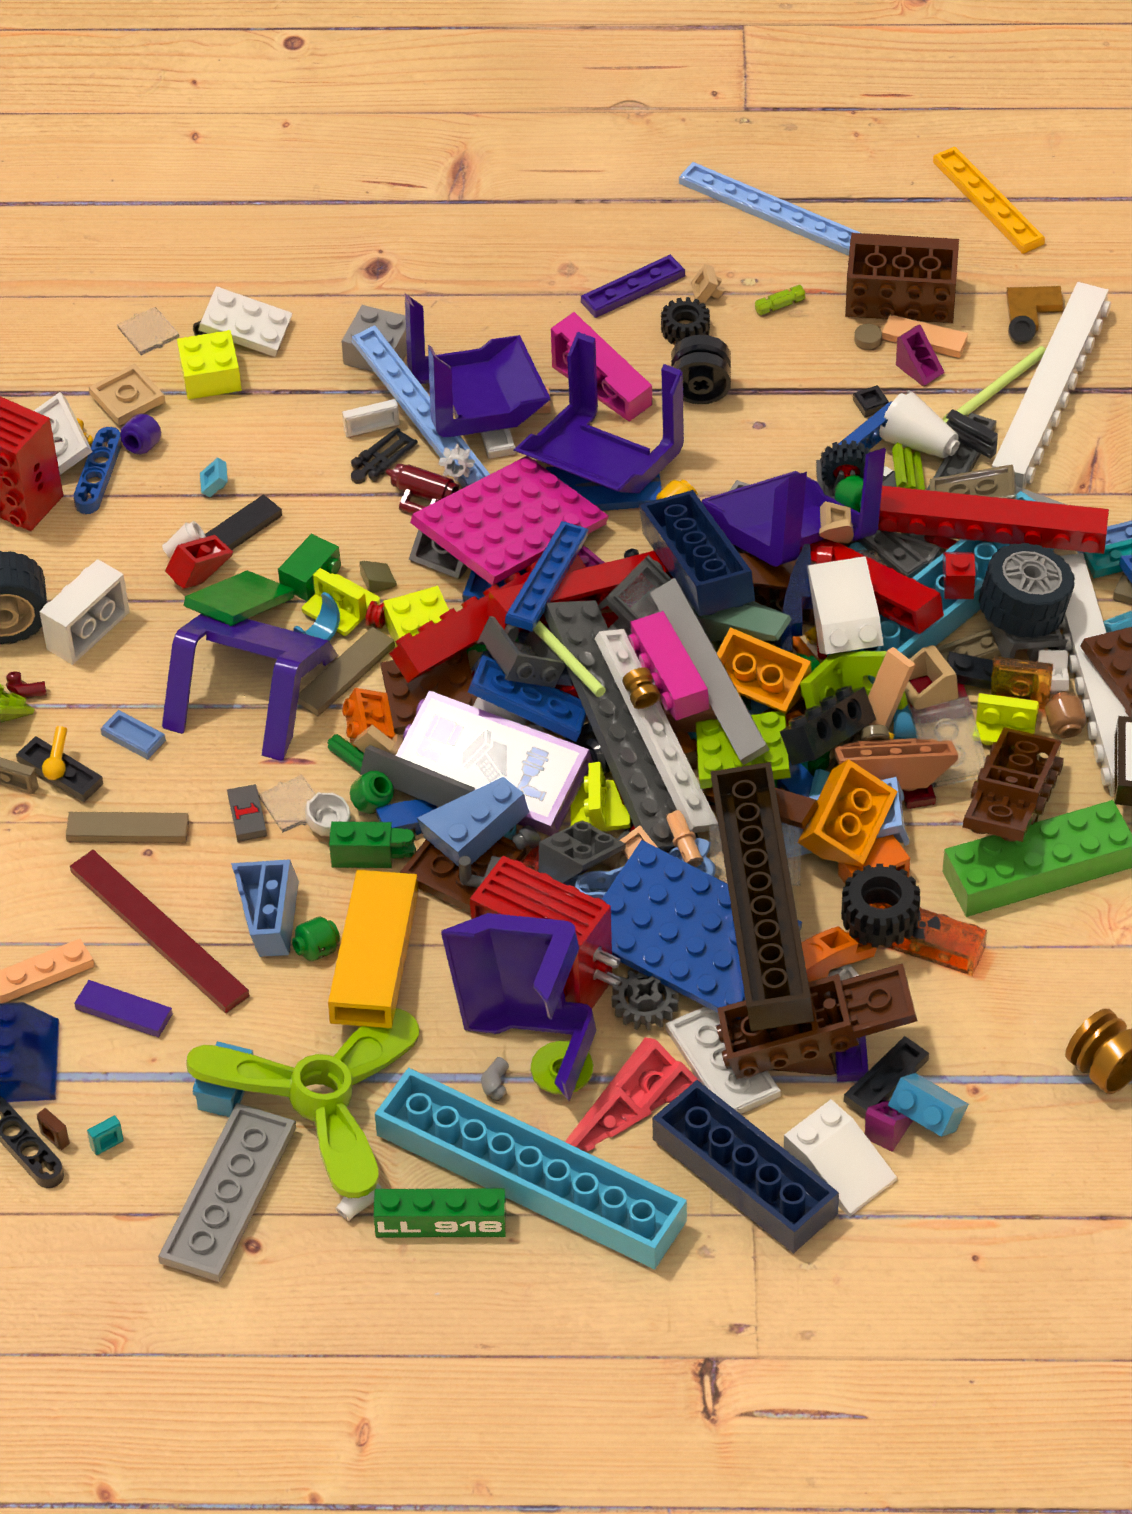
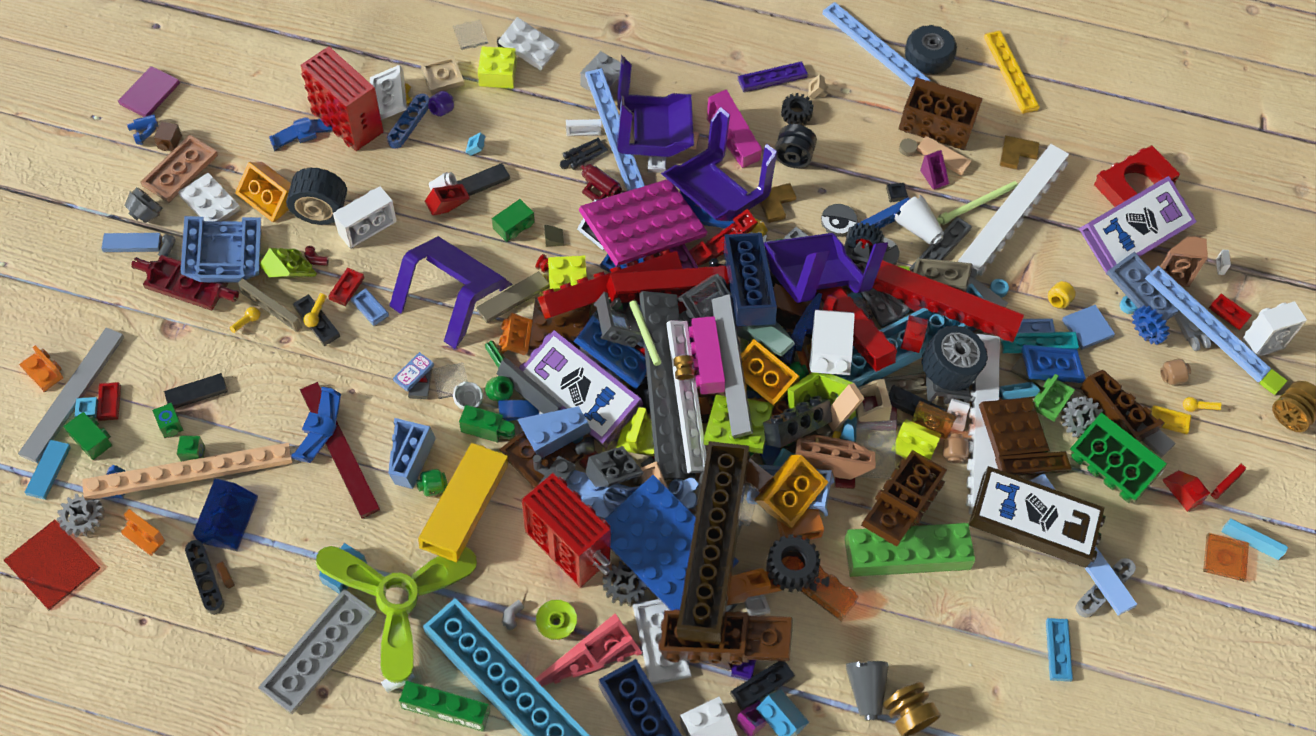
camera: 10 degrees right, 10 degrees up
(88, 714) = (346, 286): none -> red plate
(105, 1135) = (255, 588): teal tile -> none
(119, 905) = (319, 426): none -> blue plate
(123, 1008) = (299, 499): dark purple tile -> none
(127, 827) = (344, 371): dark tan tile -> none
(234, 801) = (413, 372): none -> tile
(238, 597) = (460, 232): green tile -> none
(327, 620) = (508, 264): dark azure helmet -> none
(349, 597) = (523, 248): neon yellow bracket -> none
(376, 738) = (514, 356): tan tile -> none
(449, 463) = (624, 172): white gear -> none
(514, 977) = (544, 555): dark purple piece -> none
(546, 576) = (649, 271): blue tile -> none
(628, 531) = (714, 247): none -> red slope
(684, 838) = (682, 477): light nougat axle -> none
(692, 457) = (772, 204): none -> pearl gold tile
(780, 300) = (860, 108): lime axle -> none
(795, 454) = (838, 219): none -> tile
(836, 523) = (845, 278): tan tile -> none
(850, 492) = (860, 257): green head -> none
(859, 194) = (930, 49): none -> black wheel
(874, 732) = (828, 432): dark tan tile -> none
(913, 468) = (908, 248): lime tile -> none
(973, 433) = (953, 233): black tile -> none
(1021, 329) = (1006, 167): black tile -> none
(1037, 1037) = (868, 686): none -> dark grey cone
(1062, 492) = (999, 287): none -> medium azure tile

